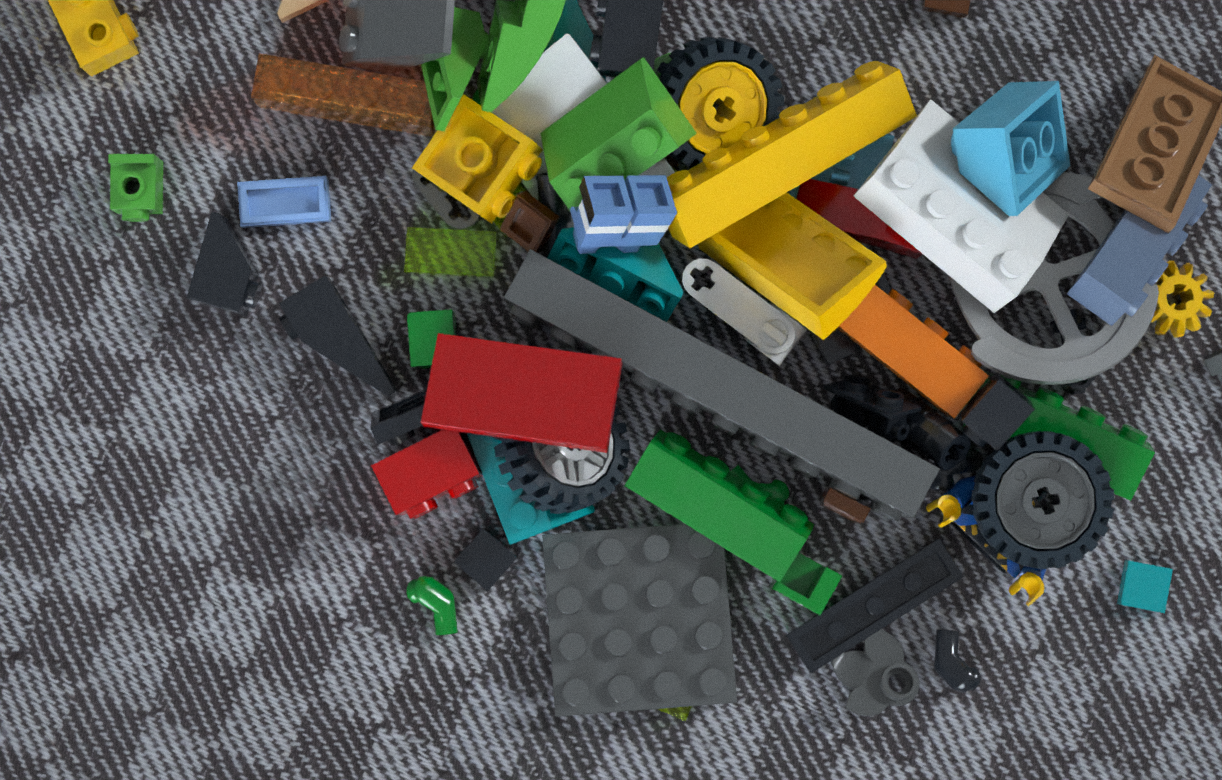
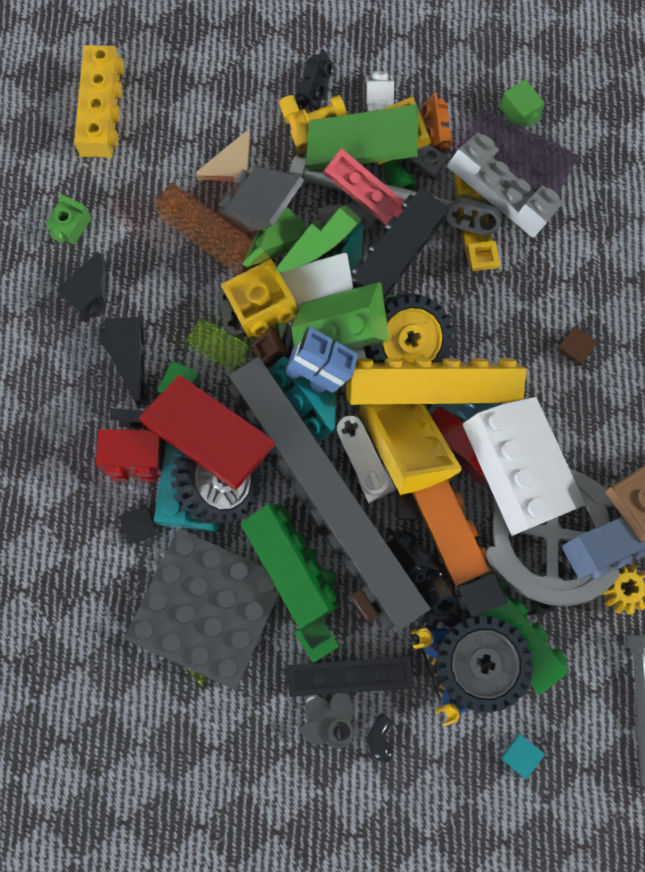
camera: 30 degrees right, 10 degrees down
(284, 201) = (142, 271): light blue tile -> none
(437, 599) = (98, 534): green arm -> none
(1014, 144) = (572, 445): medium azure slope -> none

